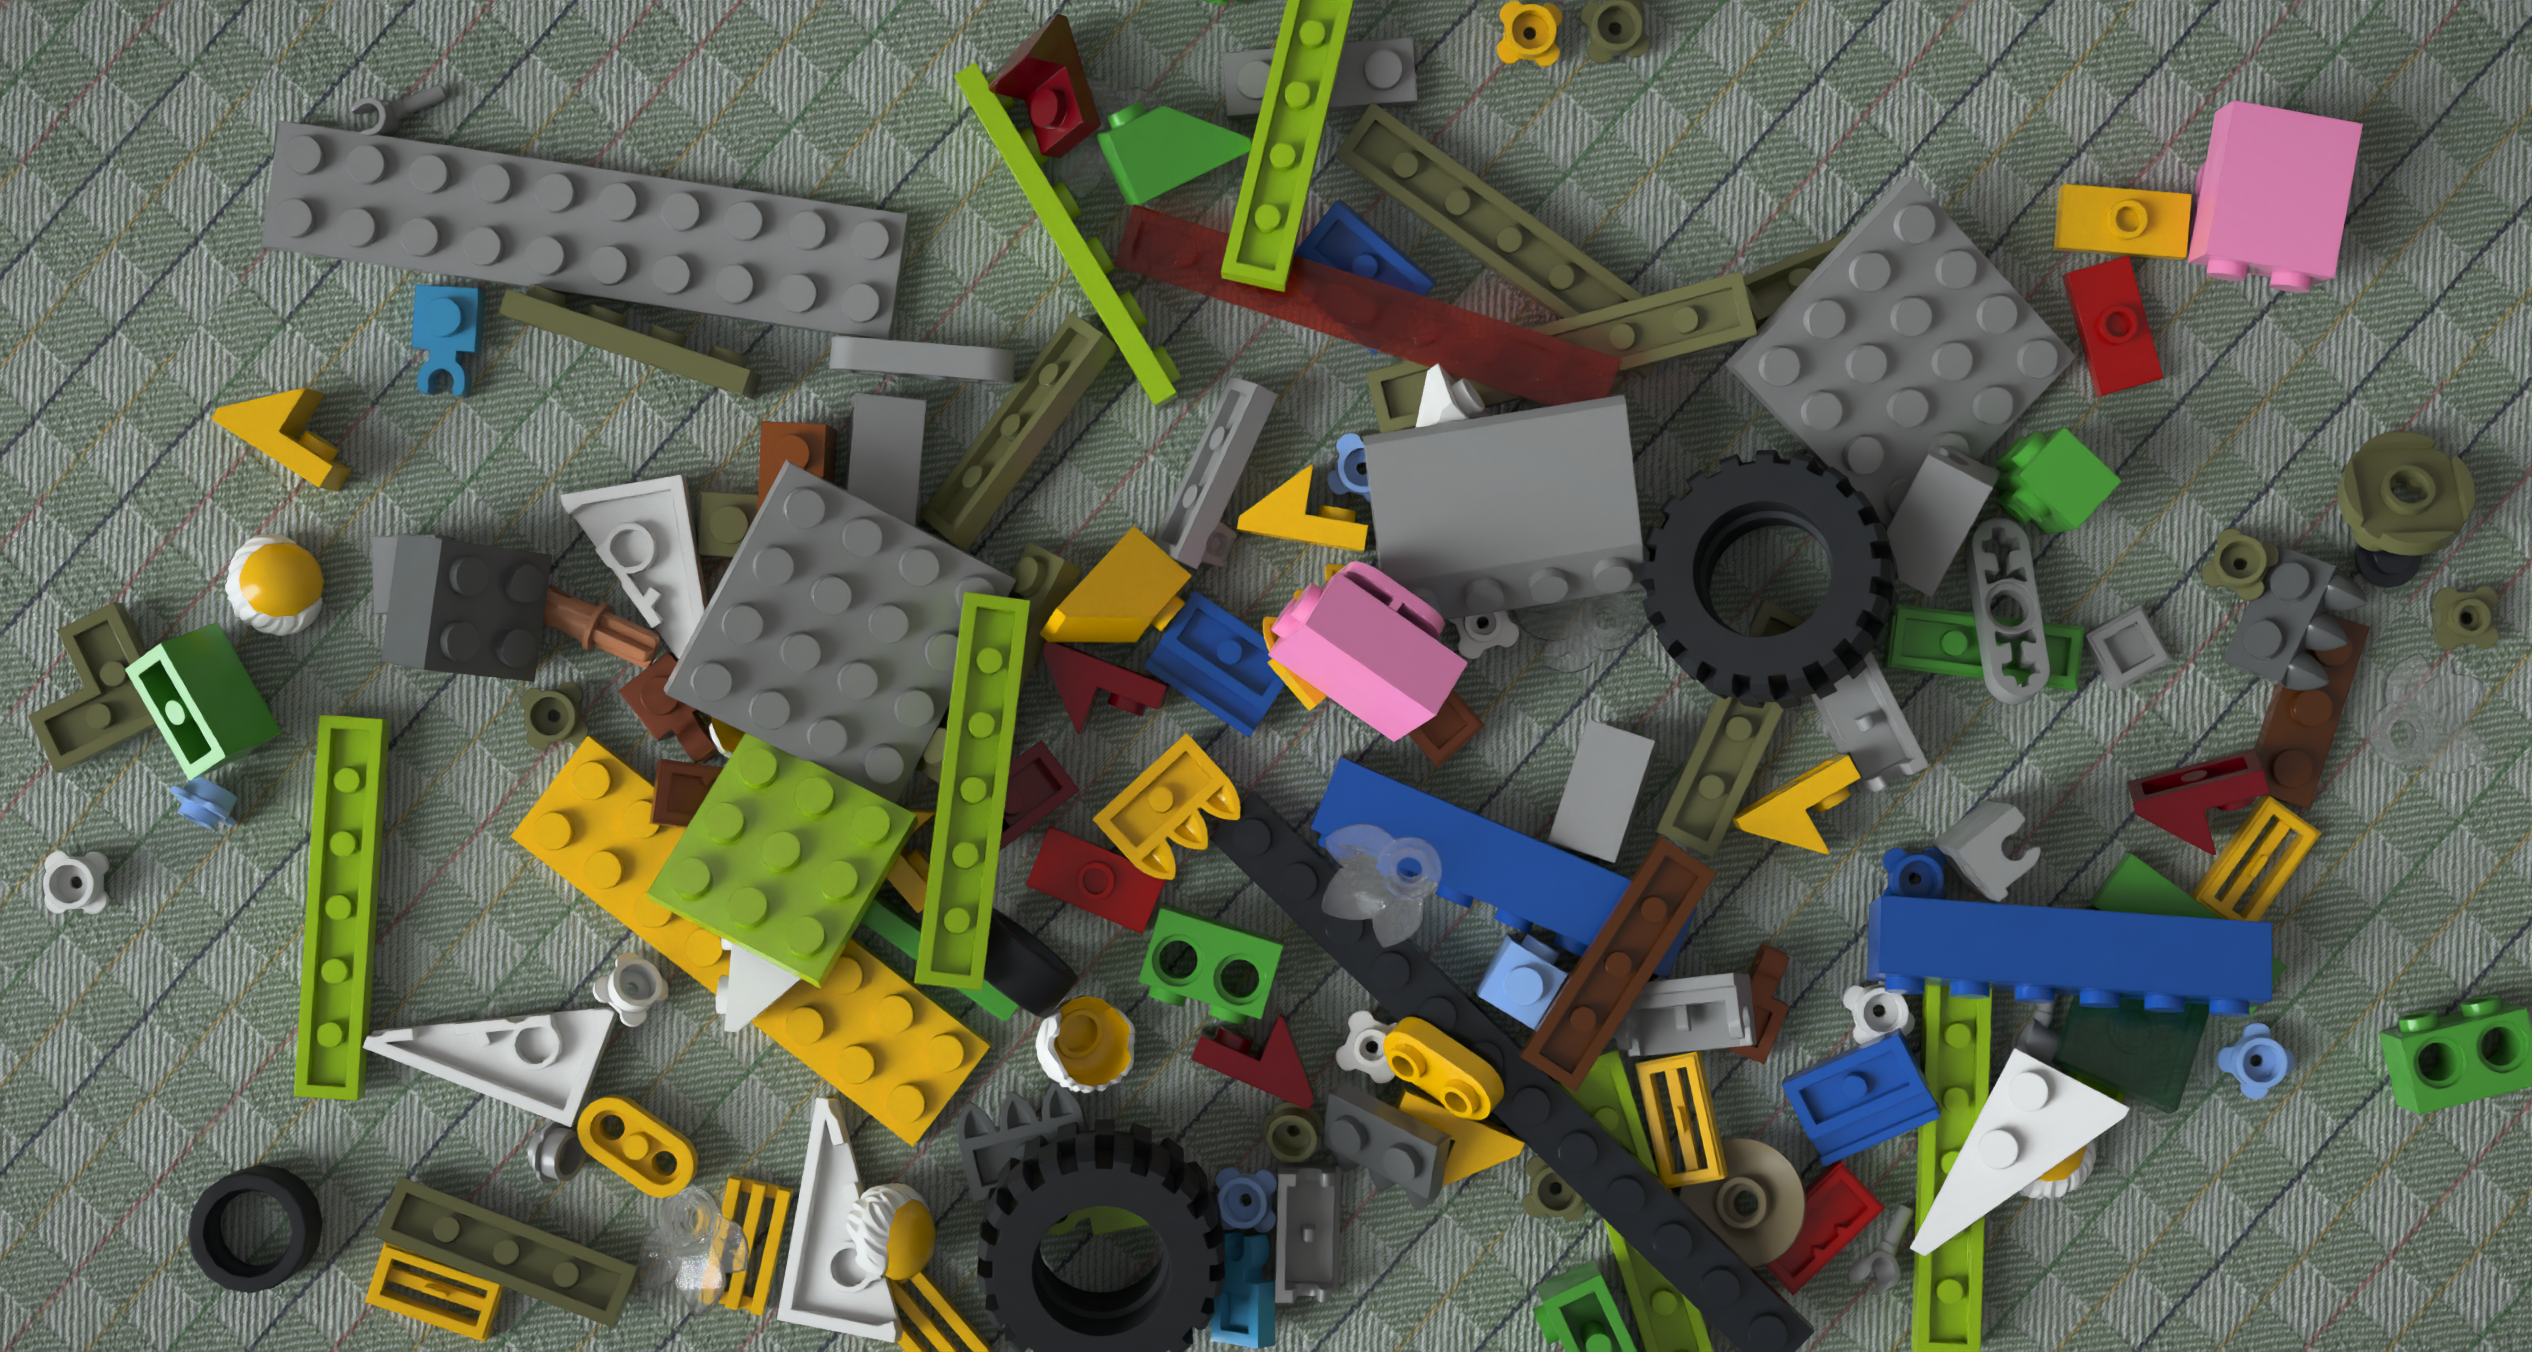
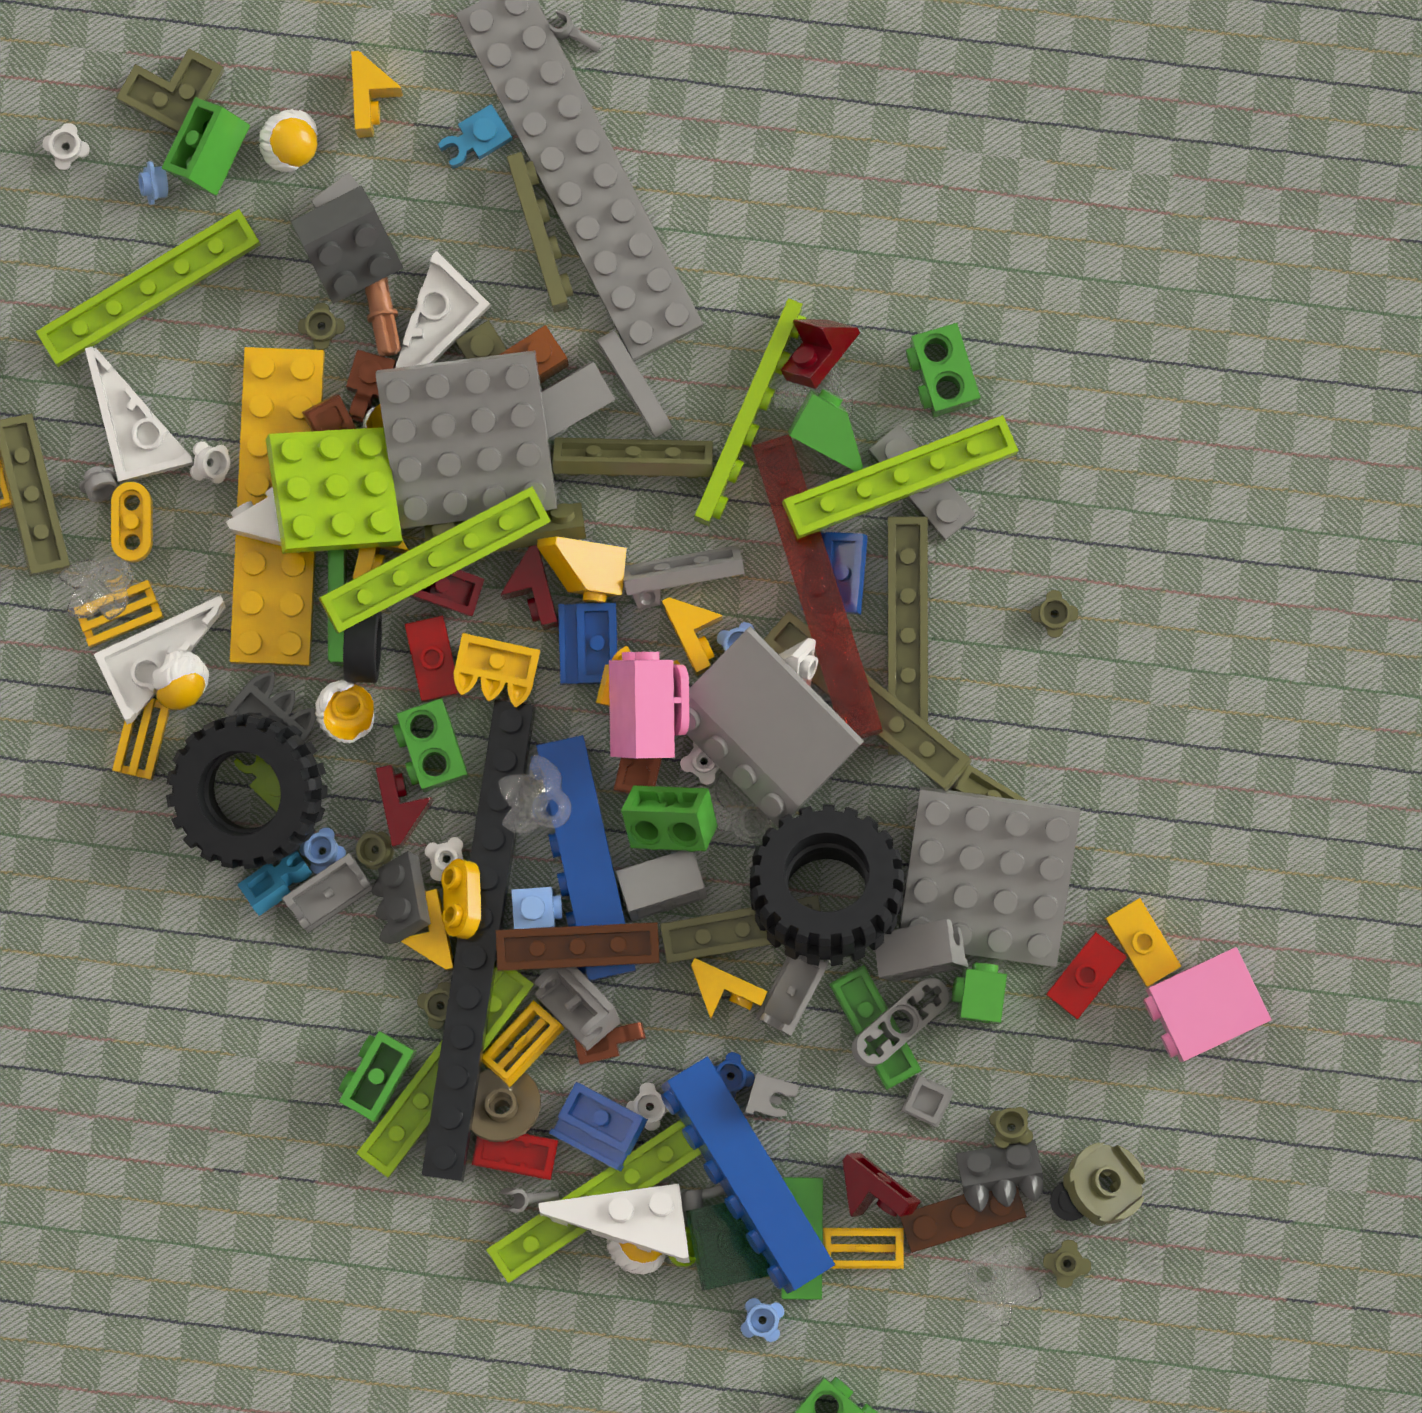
camera: 55 degrees right, 5 degrees down
(1531, 722) = (669, 818): none -> bright green brick
(1542, 20) = (1024, 561): yellow plate -> none

